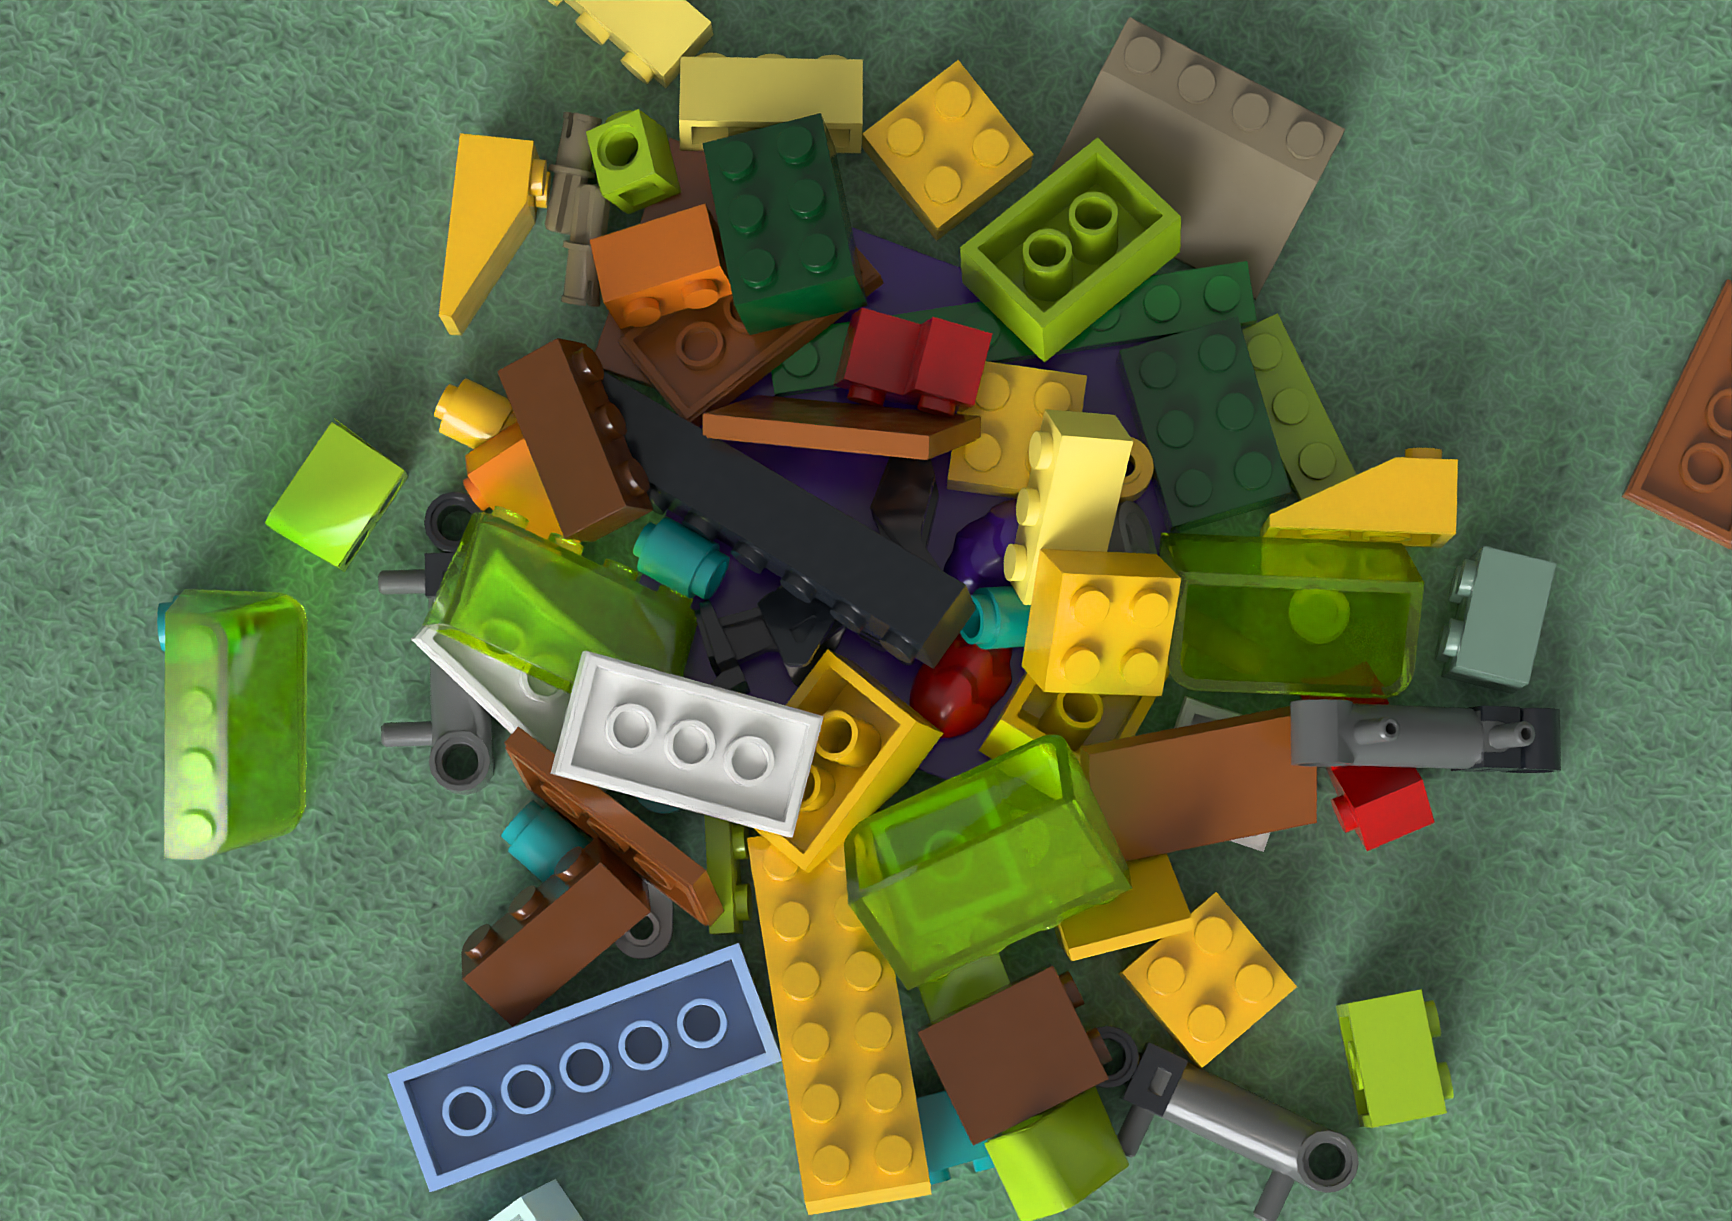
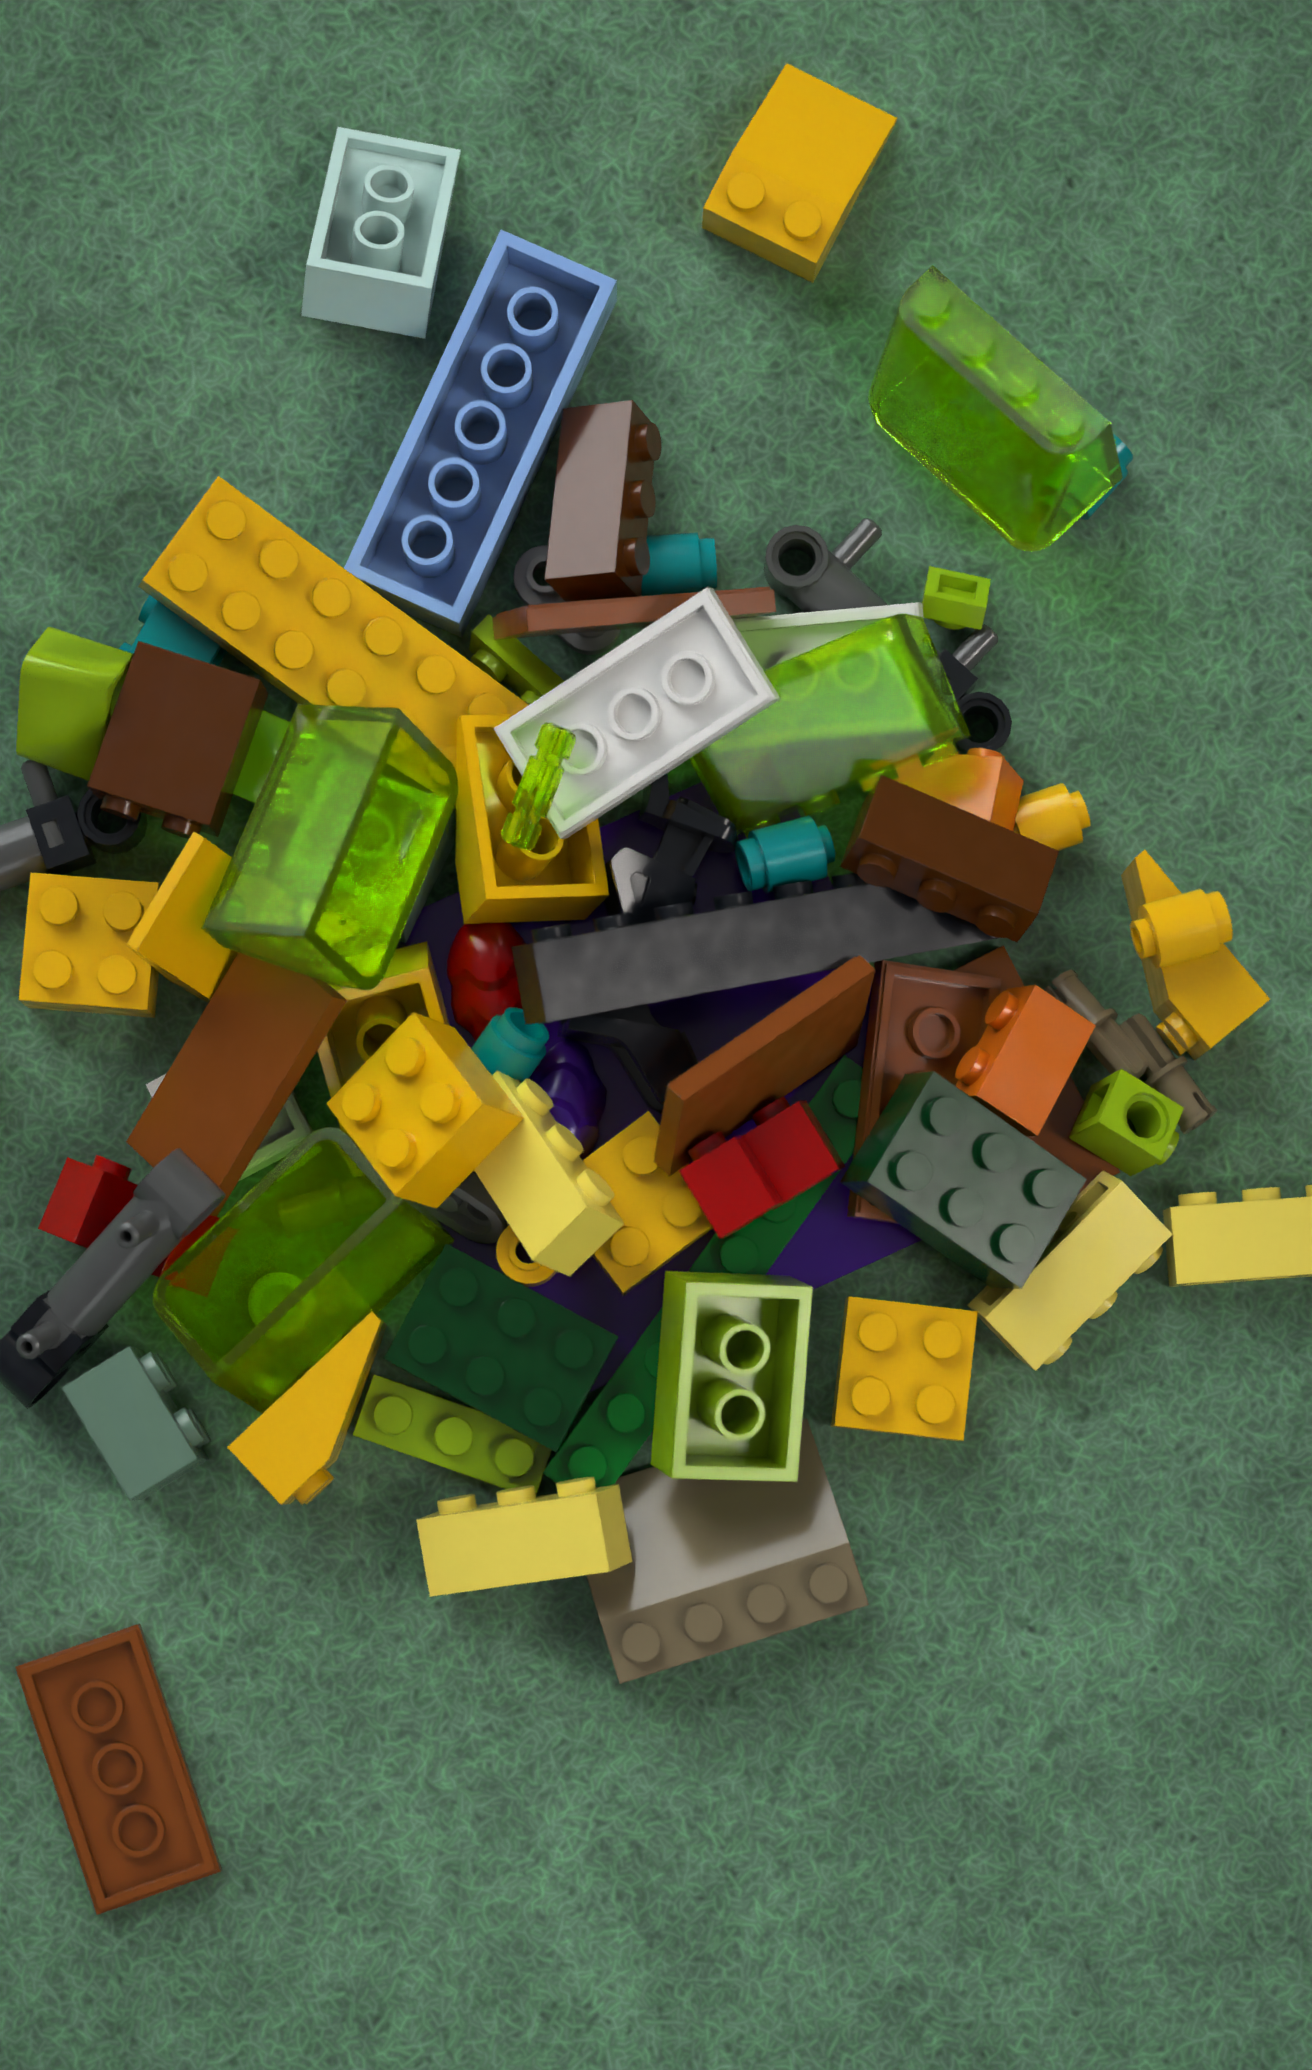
camera: 130 degrees right, 0 degrees up
(176, 1036) = (797, 172): none -> yellow slope
(336, 496) = (1085, 659): lime piece -> none
(379, 629) = (955, 598): none -> lime plate
(471, 233) = (1181, 927): none -> yellow brick
(804, 762) = (538, 786): none -> clear neon green axle
(1313, 287) = (524, 1537): none -> light yellow brick

